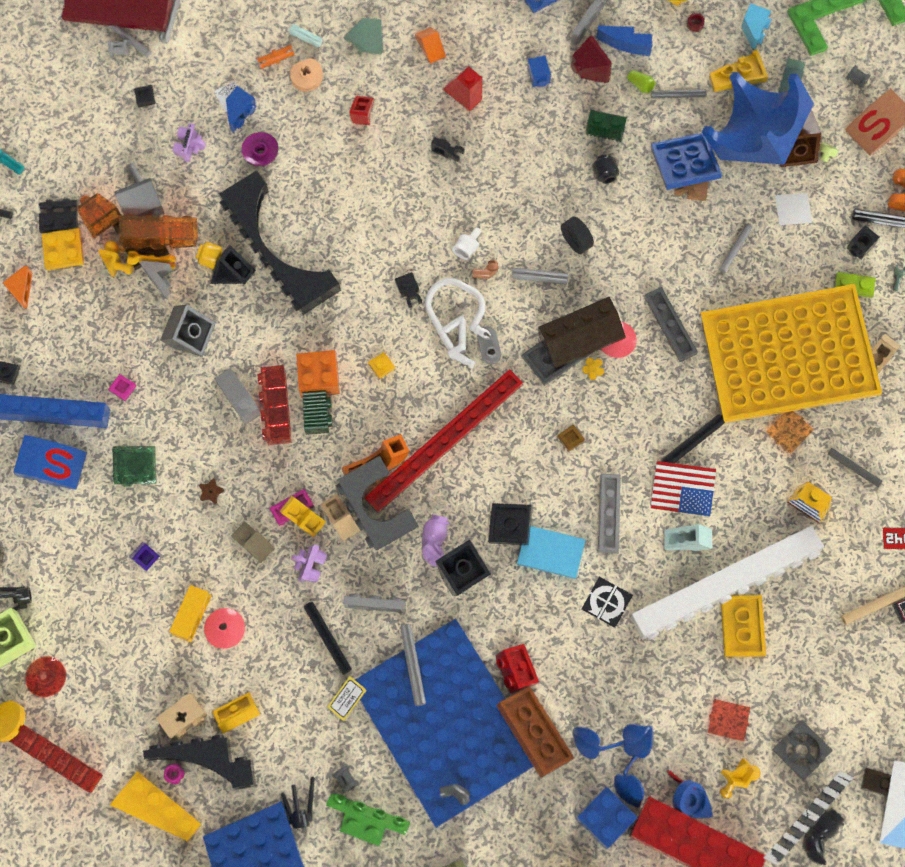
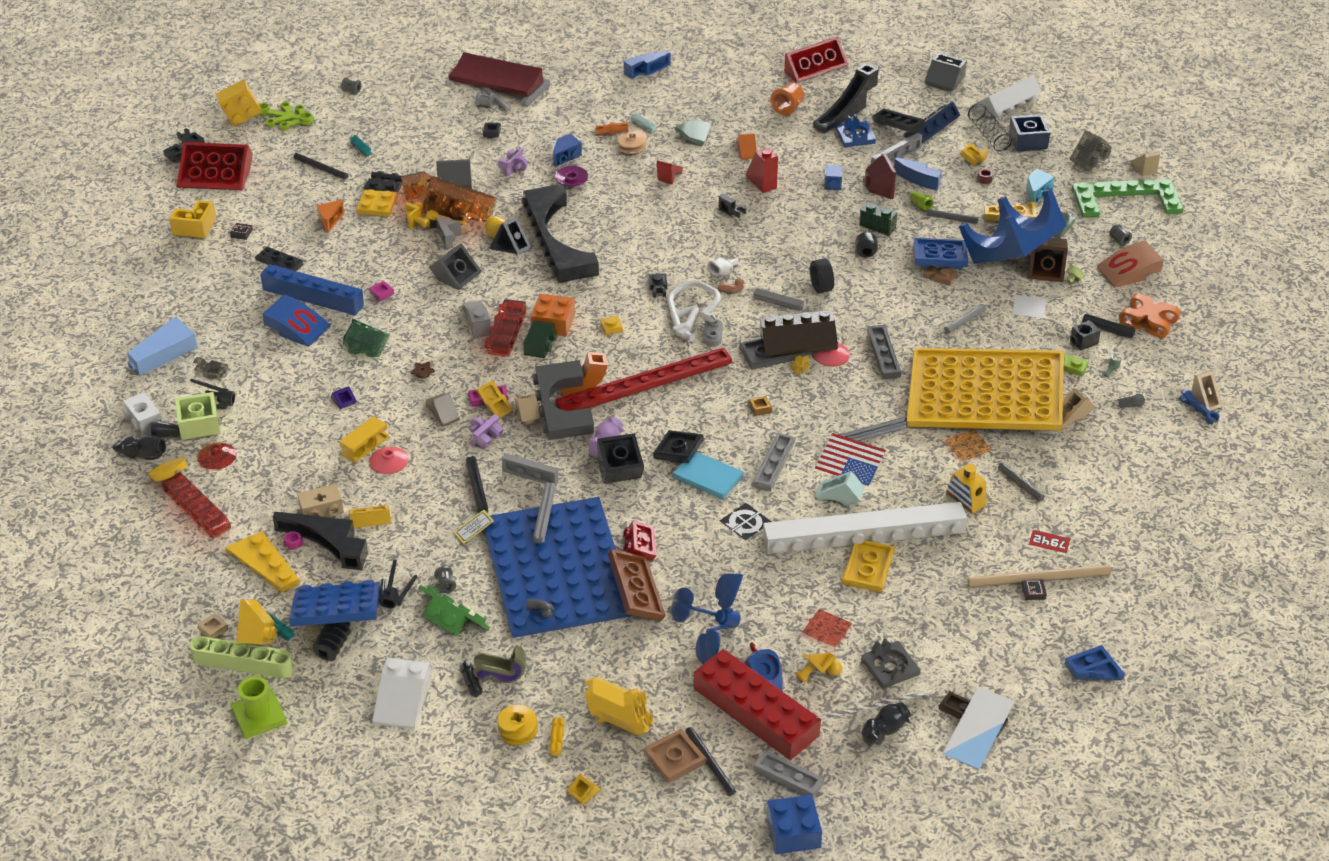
camera: 15 degrees right, 30 degrees down
(606, 818) = (674, 661): blue brick -> none

